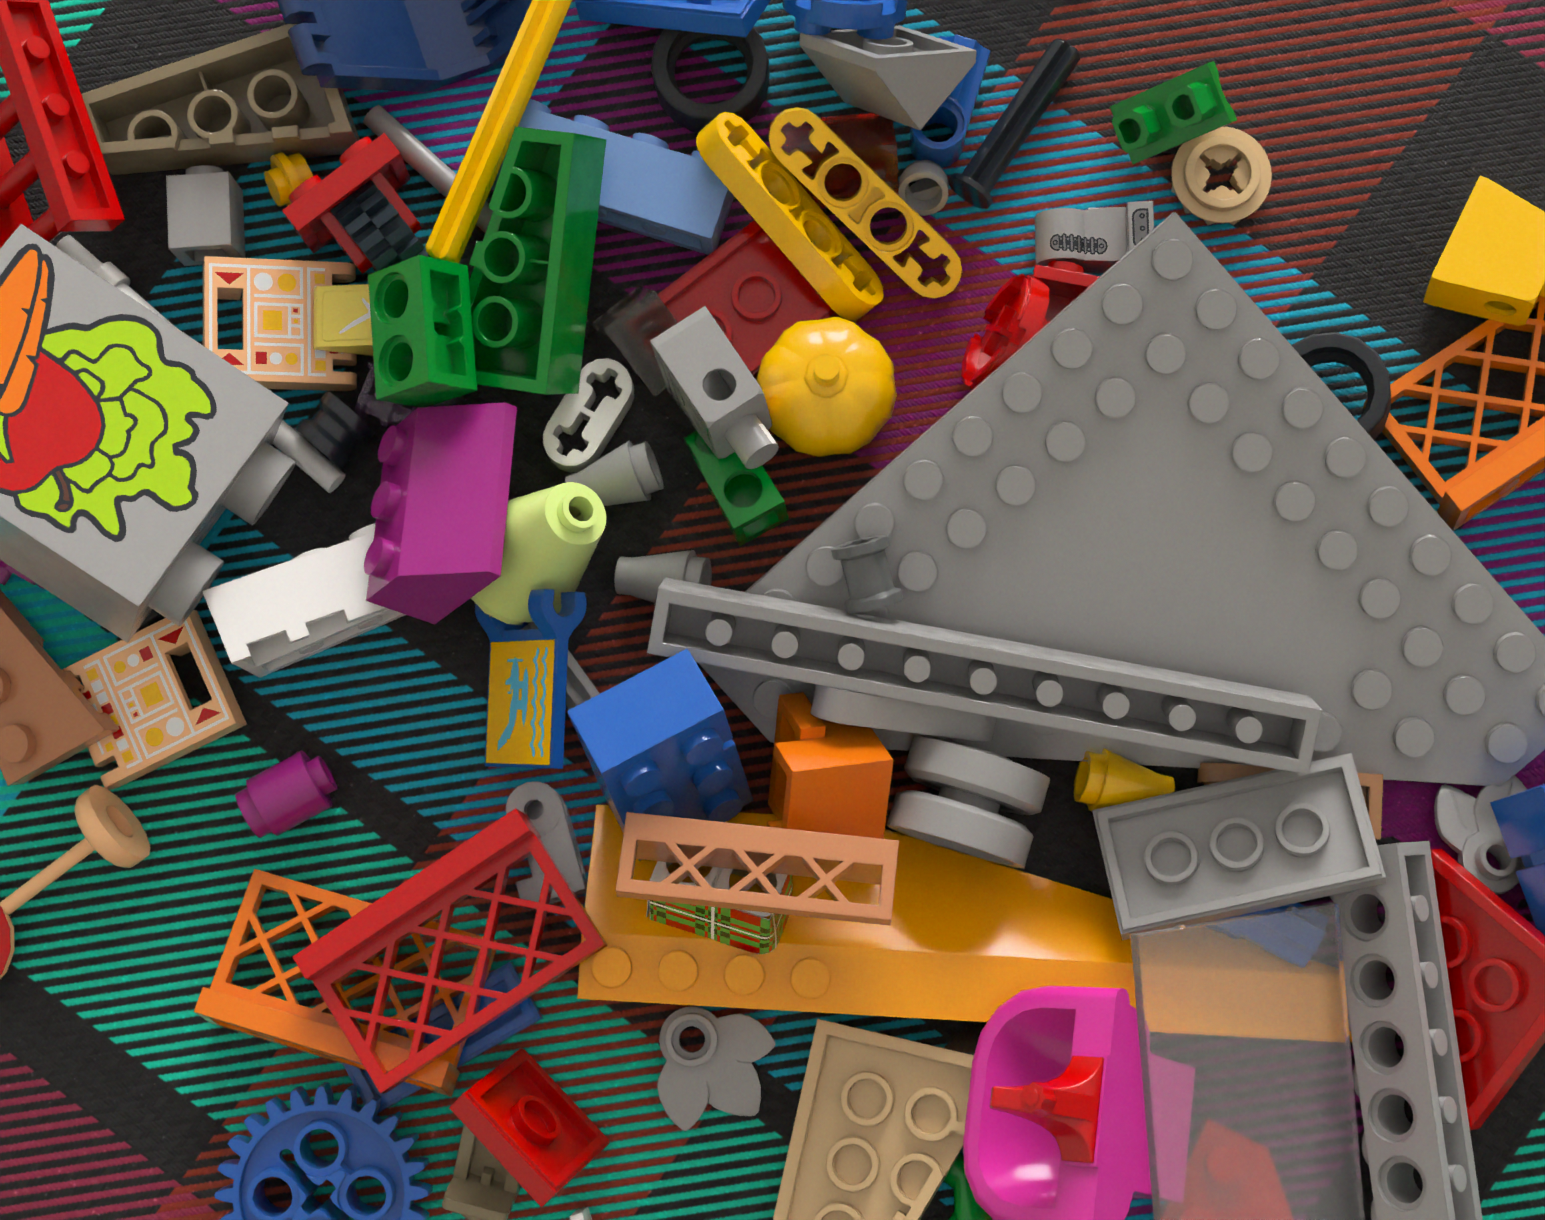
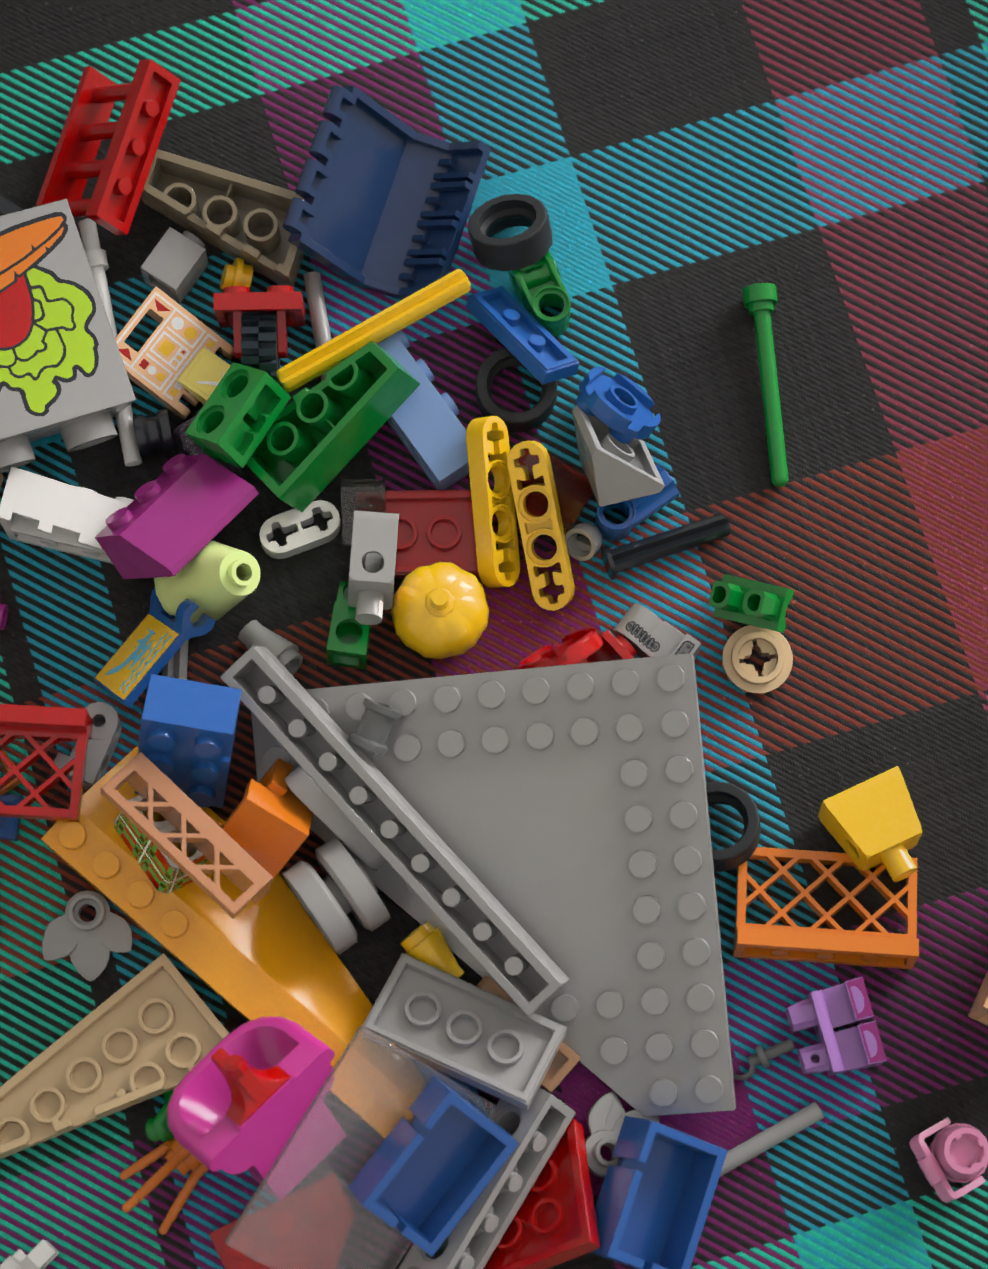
camera: 25 degrees right, 5 degrees down
(622, 475) = (290, 576): light grey cone -> none
(1334, 1031) = (433, 1166): none -> blue piece

